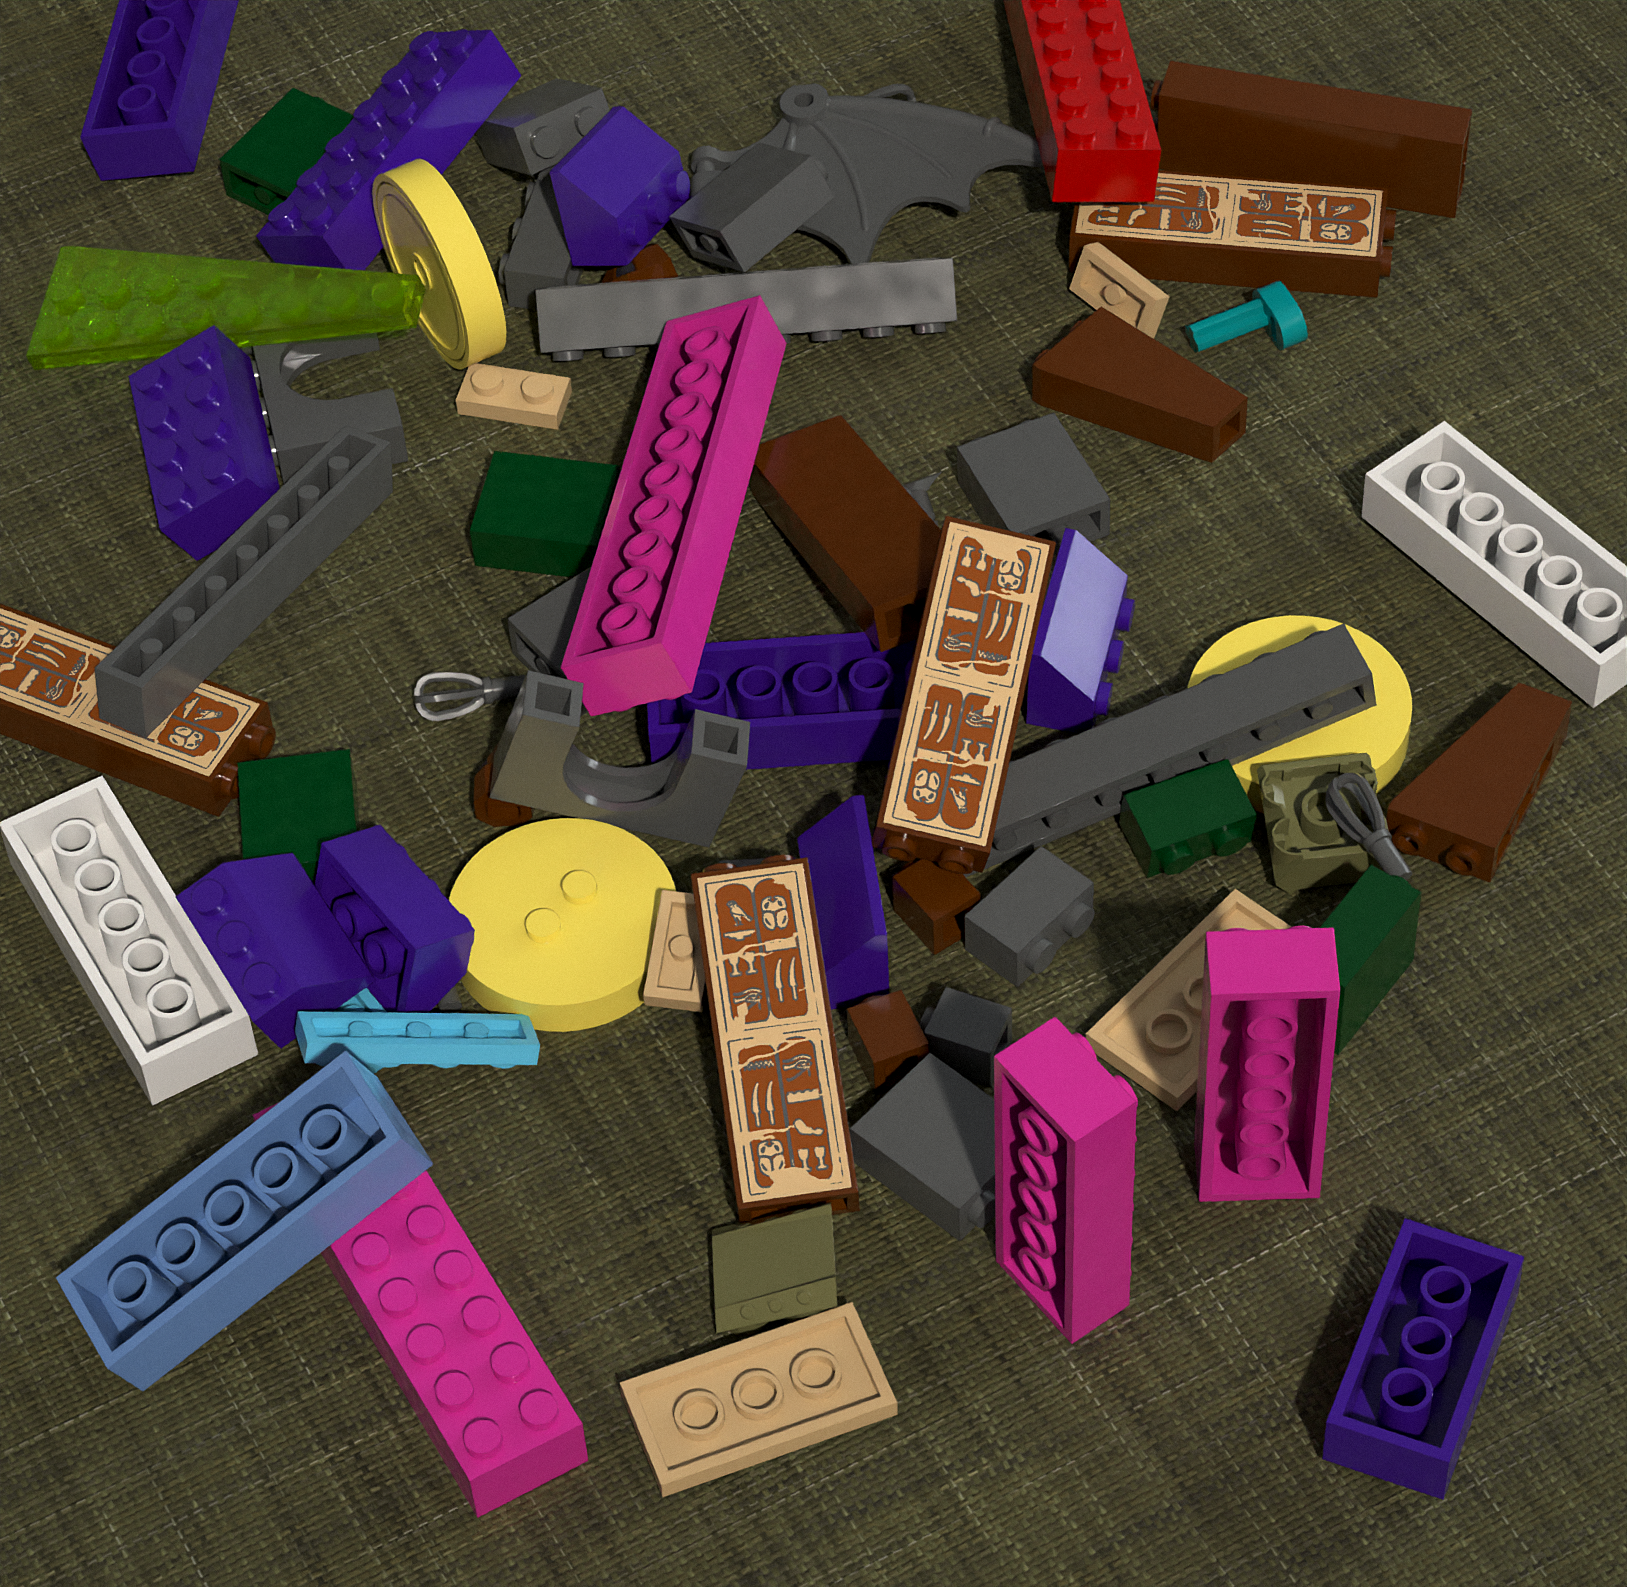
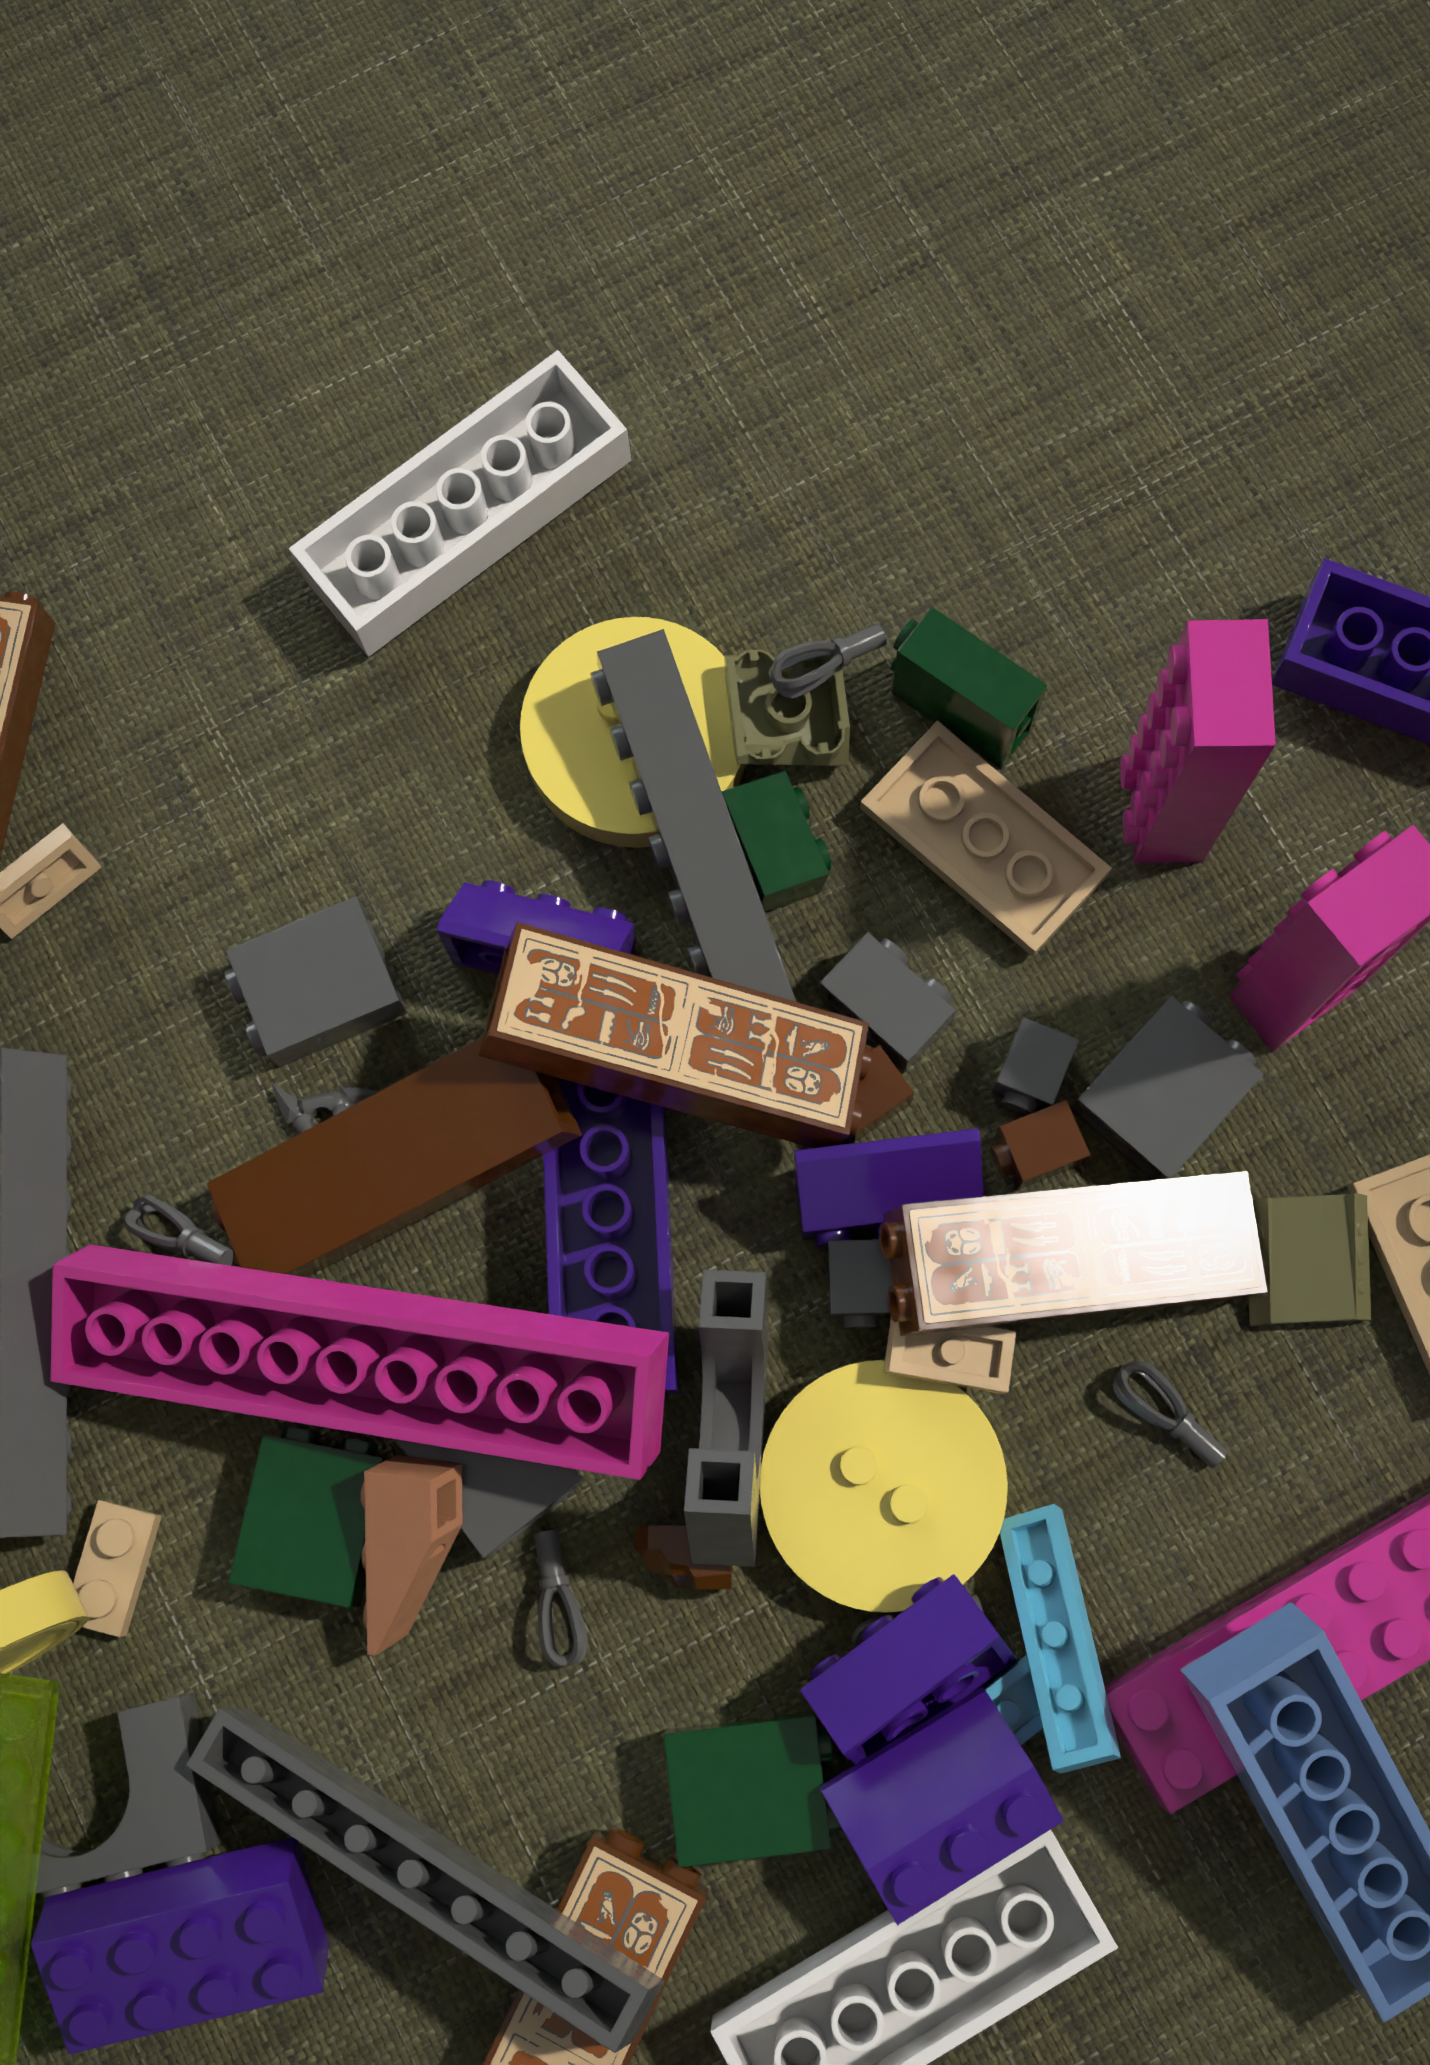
camera: 85 degrees left, 25 degrees up
(519, 562) = (409, 1529): none -> nougat slope
(616, 1166) = (1183, 1424): none -> dark grey piece
(792, 413) = (191, 1240): none -> dark grey piece
(1139, 388) = (177, 868): reddish brown slope -> none
(1270, 308) = (76, 726): teal piece -> none
(1482, 786) = (735, 560): reddish brown slope -> none

